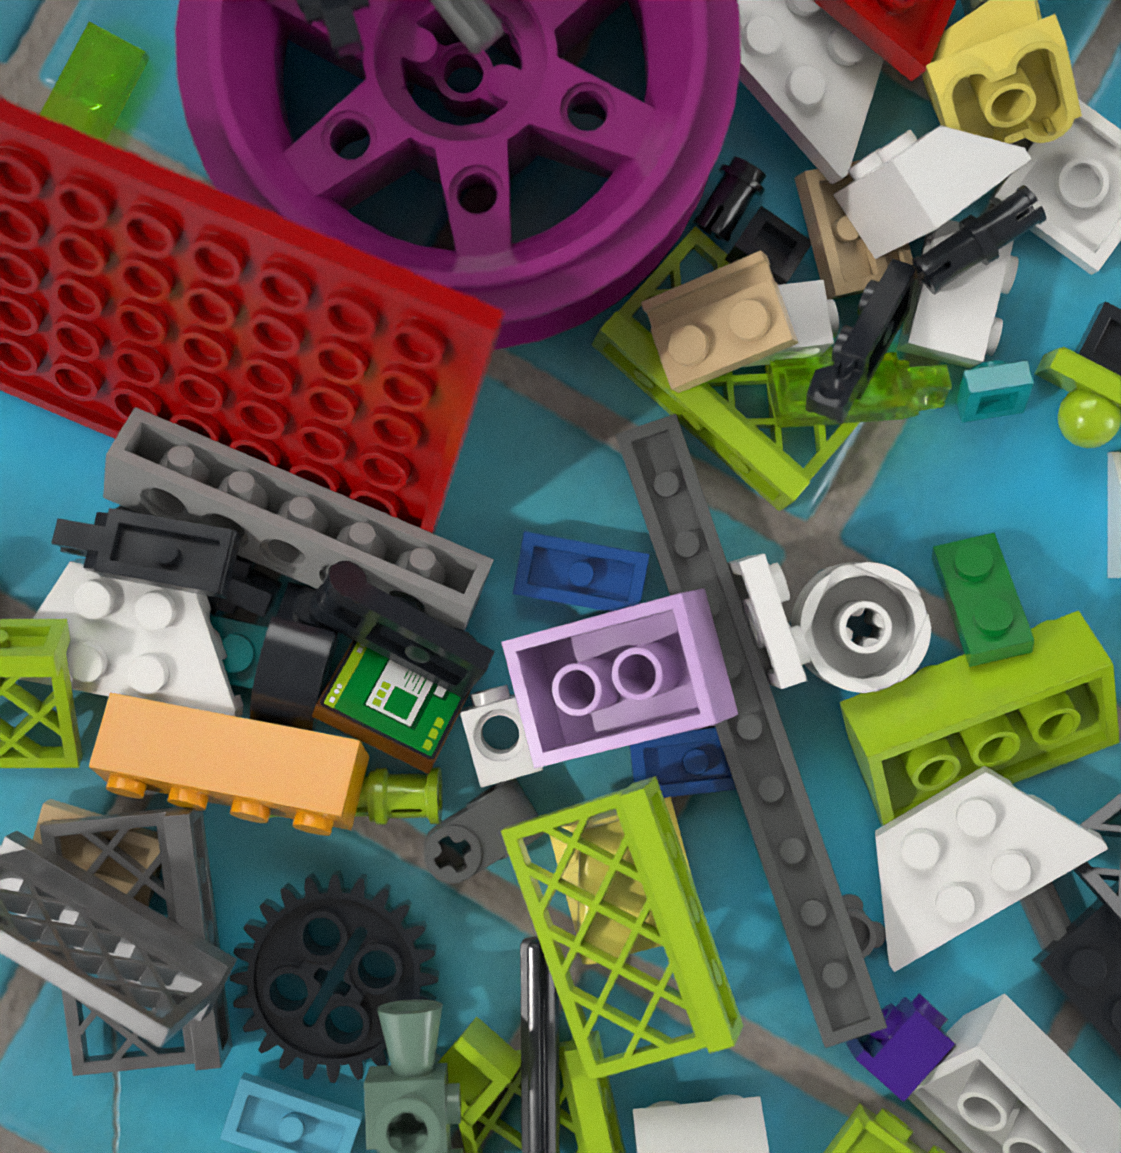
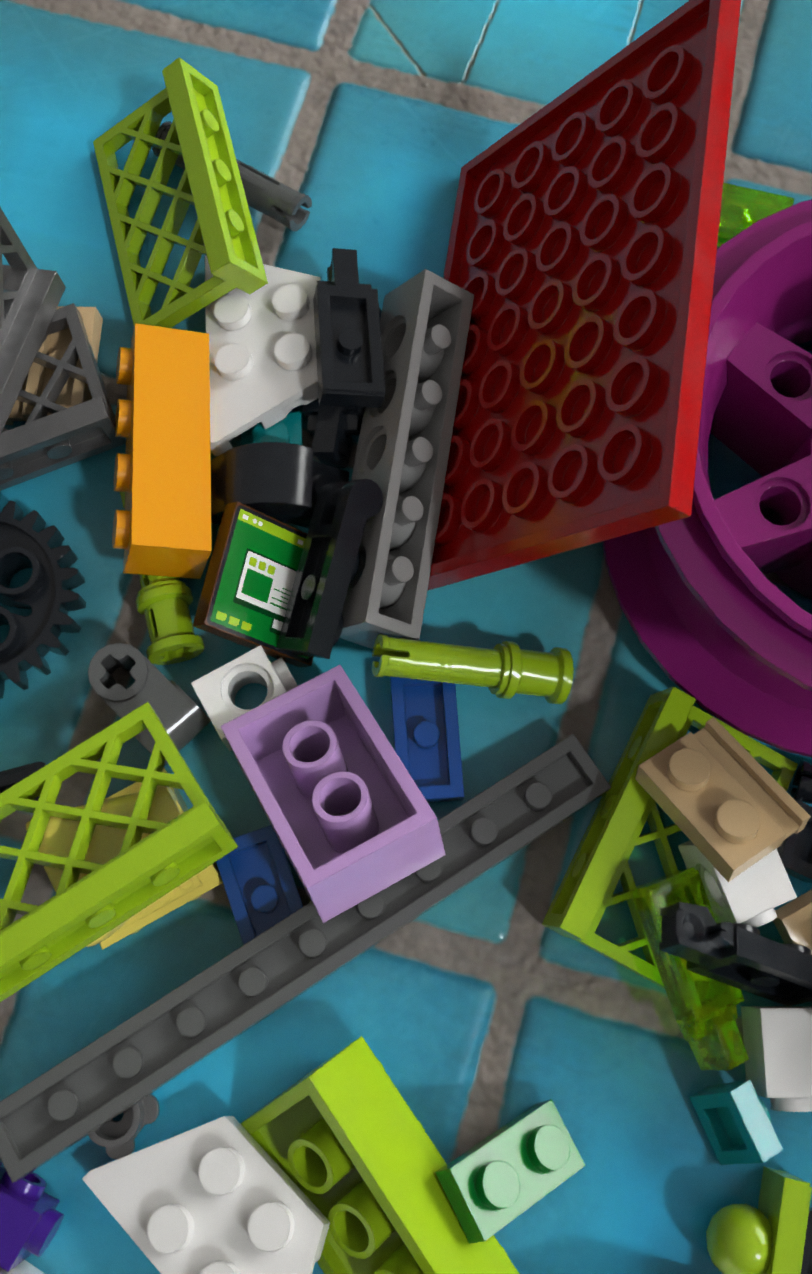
camera: 75 degrees right, 15 degrees down
(537, 484) = (502, 669): none -> lime pin
(778, 644) = (456, 917): white plate -> none
(893, 610) = (474, 1069): white brick -> none

